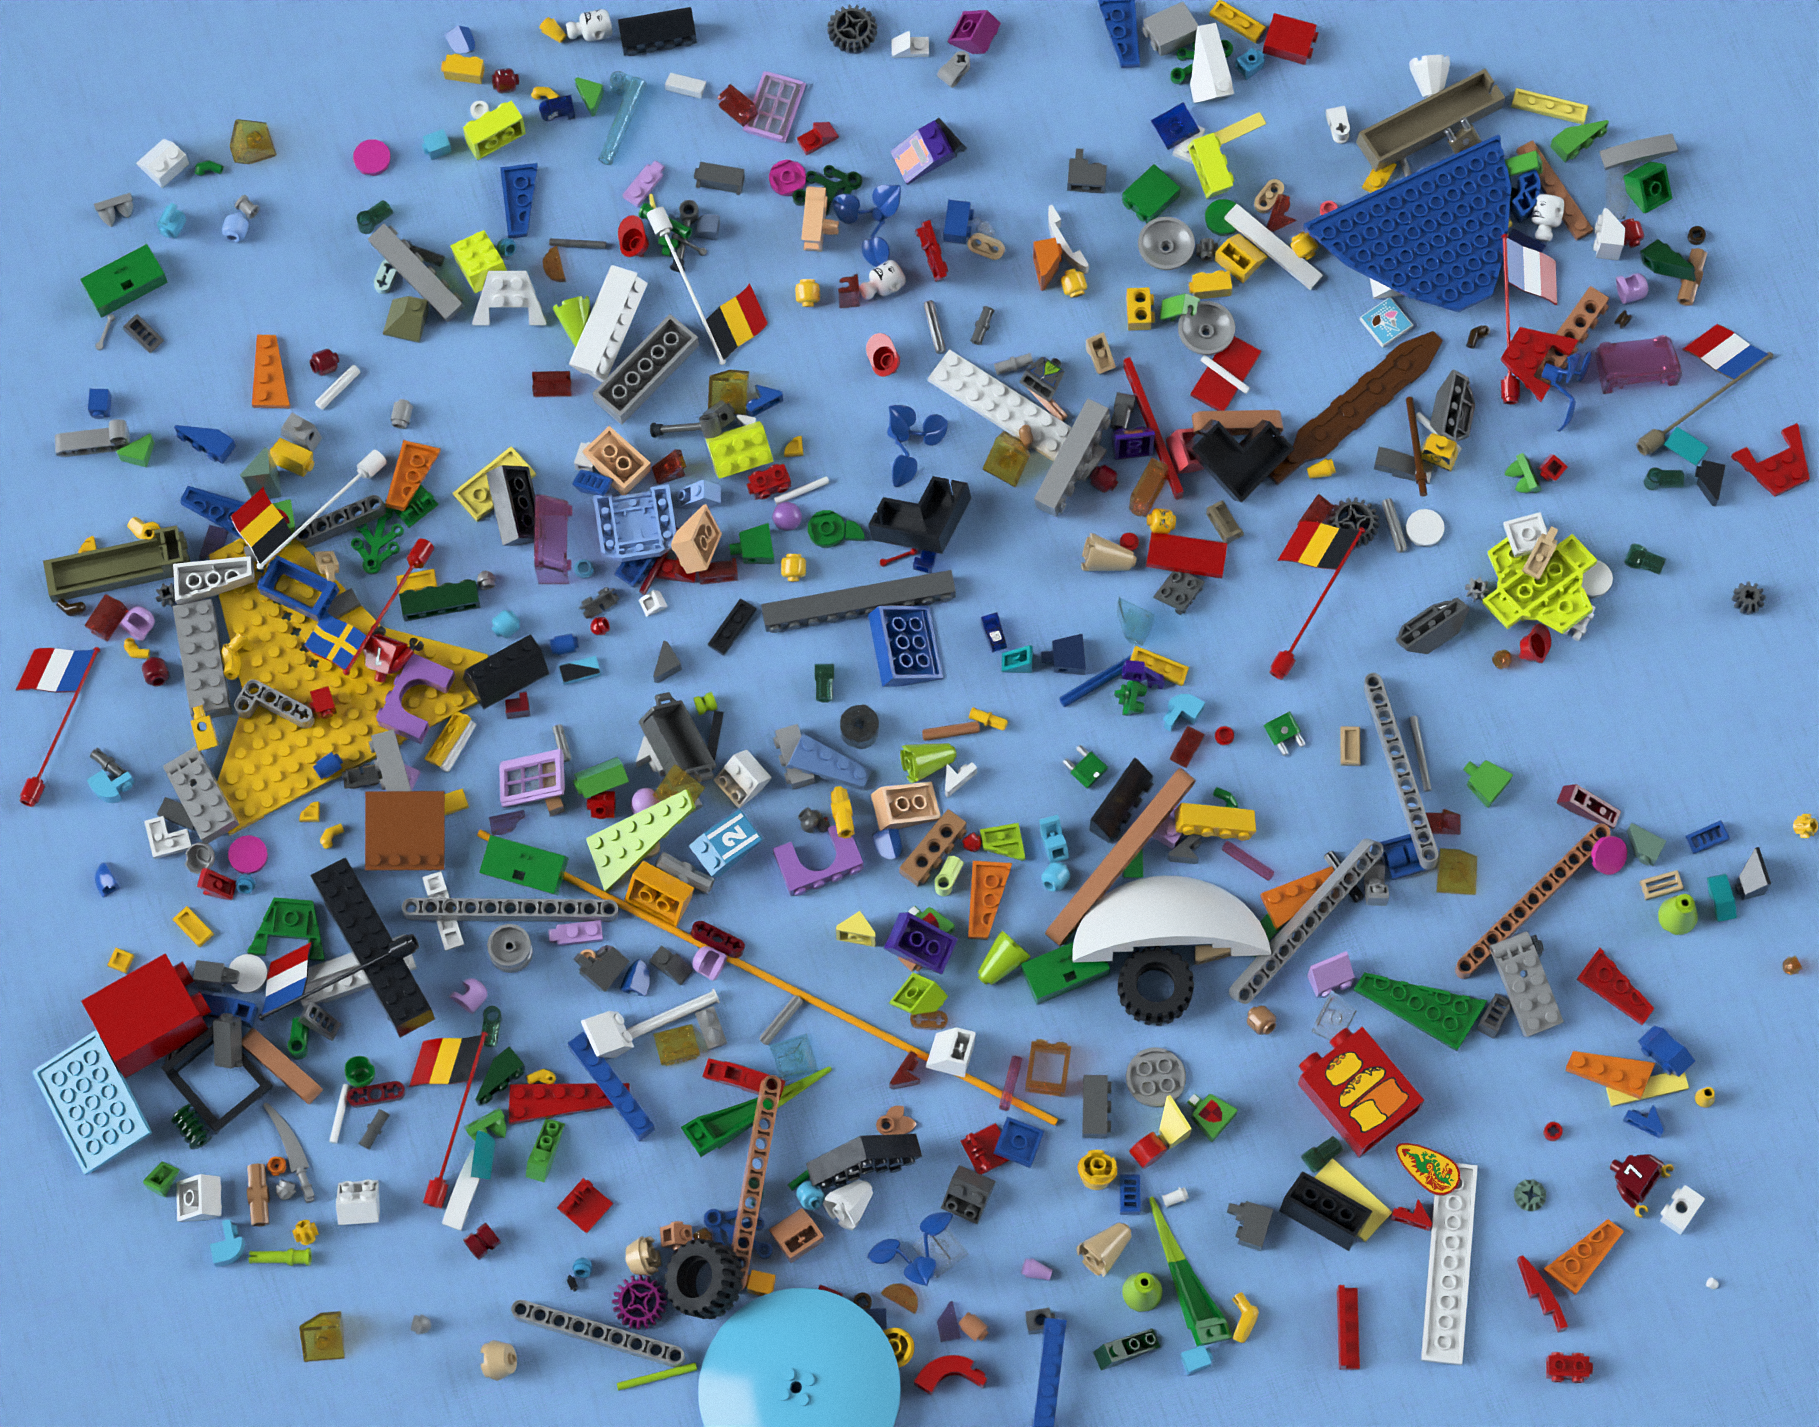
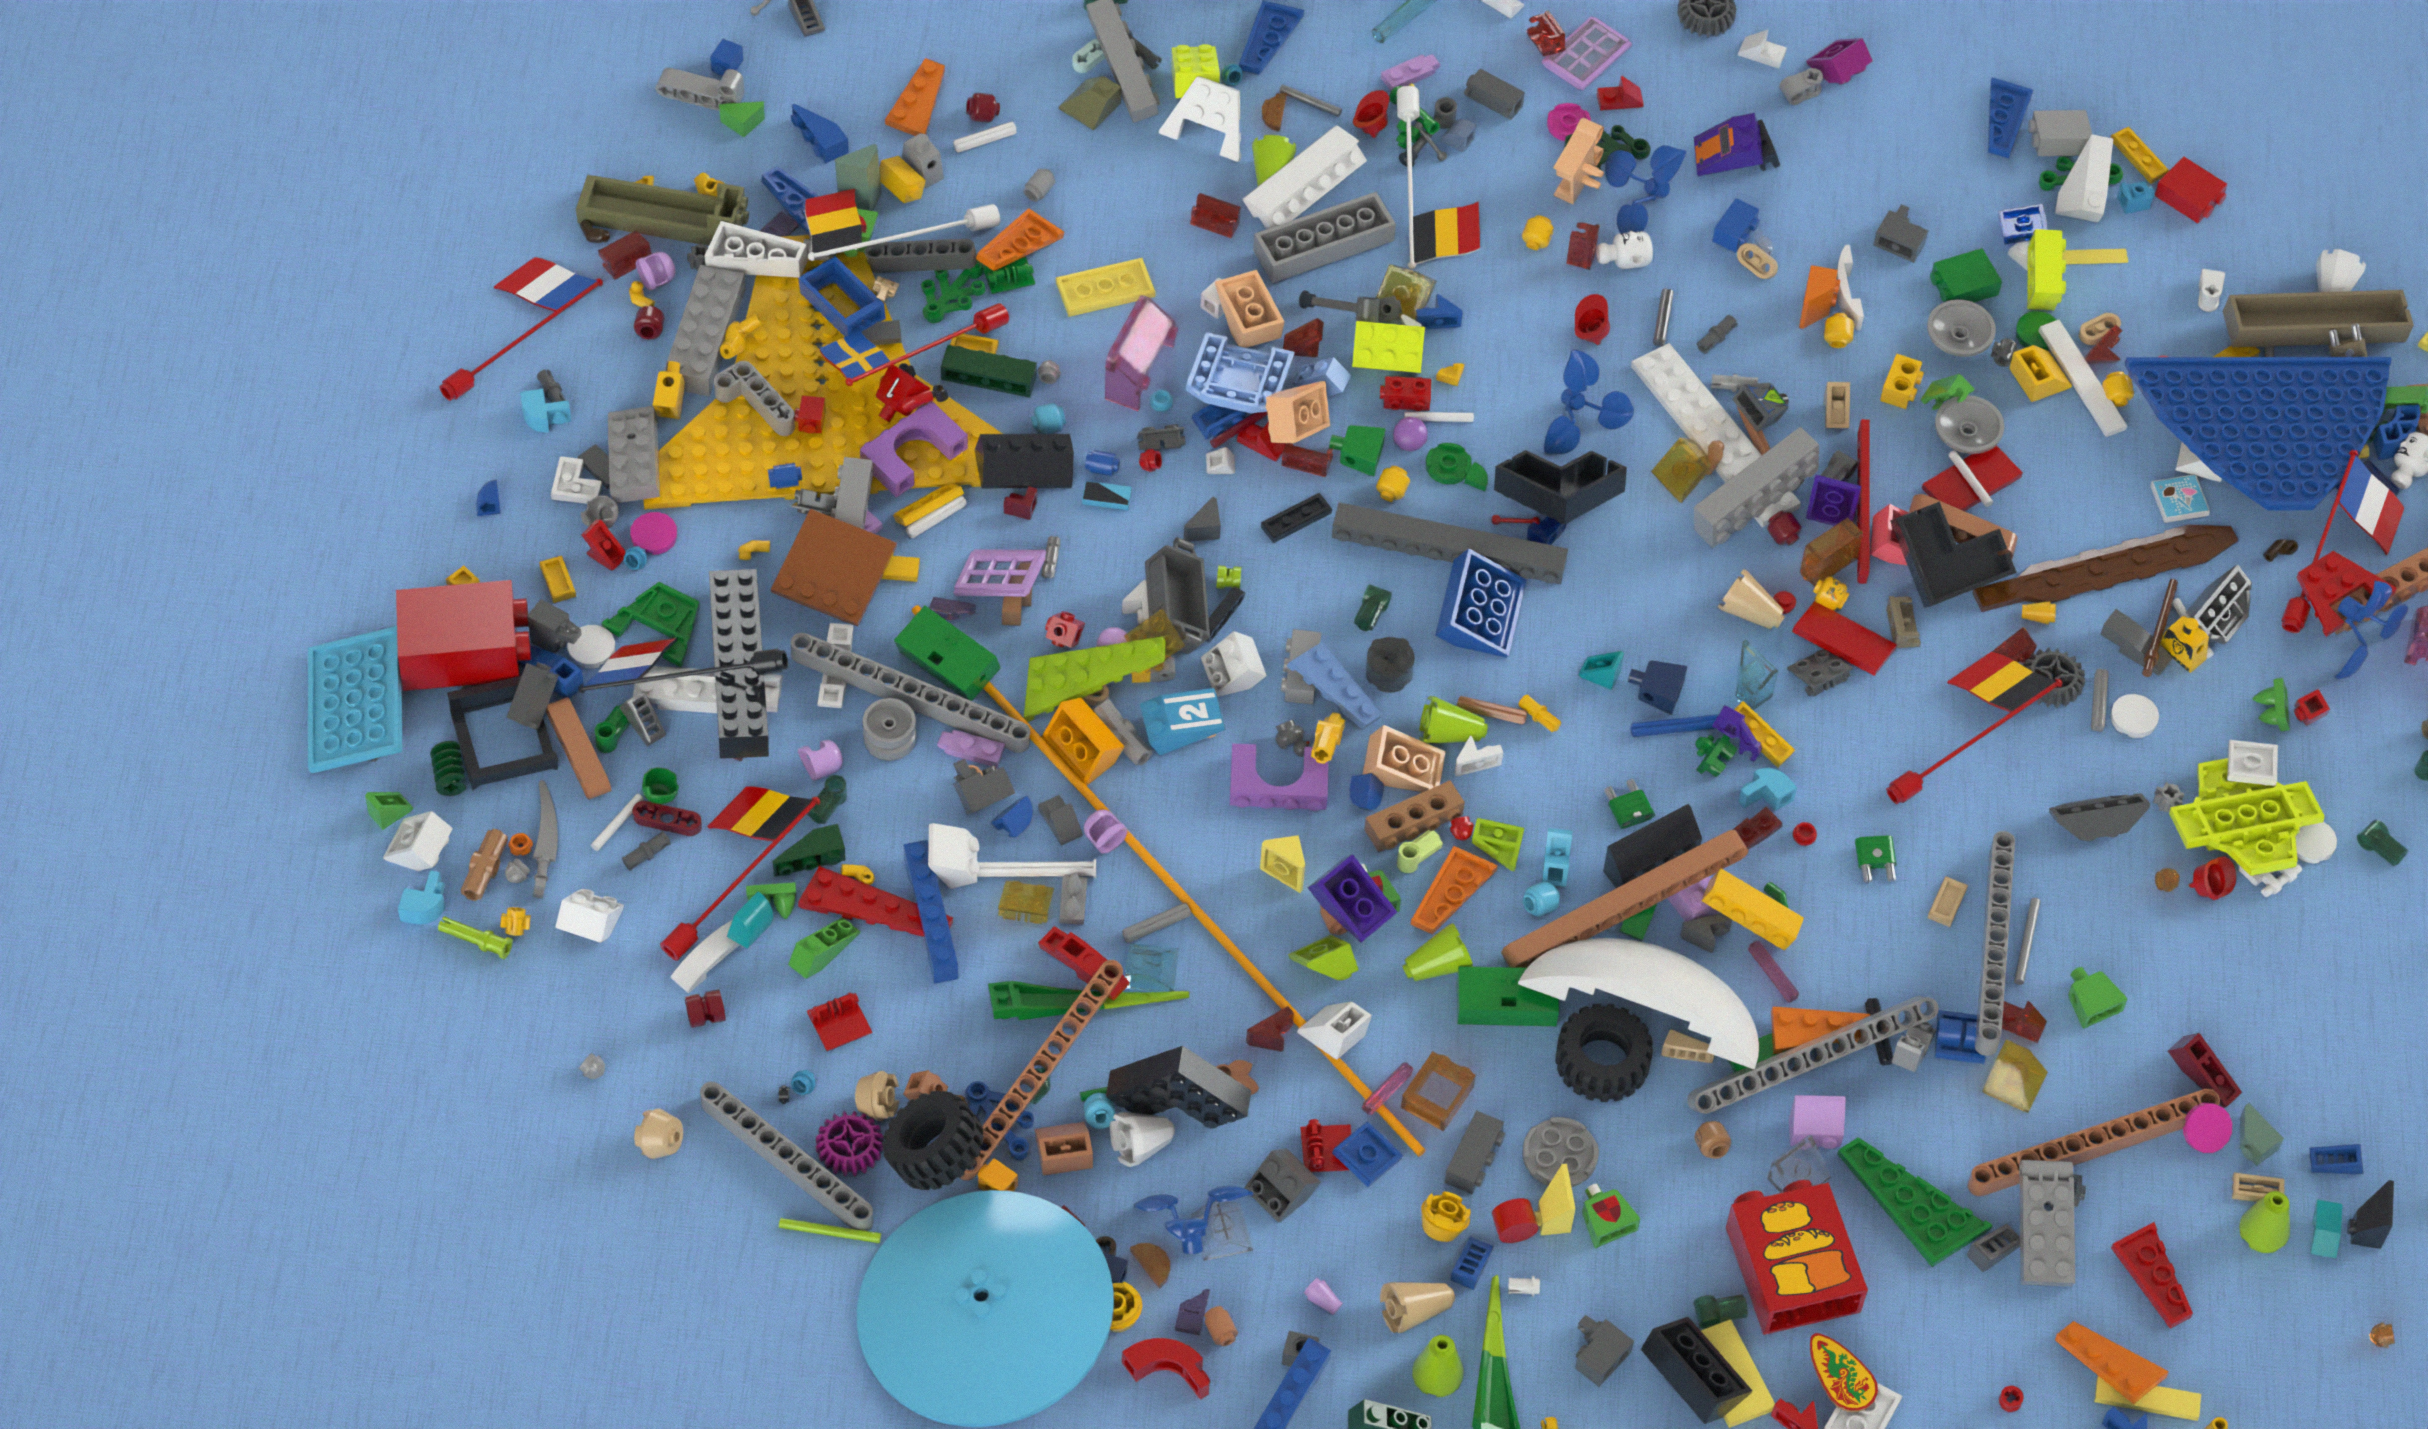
camera: 20 degrees right, 15 degrees down
(311, 813) = (743, 521): yellow tile -> none
(323, 1337) = (477, 1034): clear yellow slope -> none
(513, 503) = (1113, 301): black slope -> none
(589, 483) = (1210, 320): blue slope -> none
(600, 778) = (1075, 600): bright green brick -> none
(715, 932) = (1115, 801): dark red beam -> none
(927, 1024) = (1325, 988): clear orange beam -> none
(932, 251) = (1694, 236): red wing -> none
(993, 632) = (1587, 629): clear blue leg -> none
(1211, 284) = (1995, 387): yellow brick -> none
(1541, 554) = (2259, 782): tan hinge -> none
(1666, 1051) = (2187, 1364): blue brick -> none

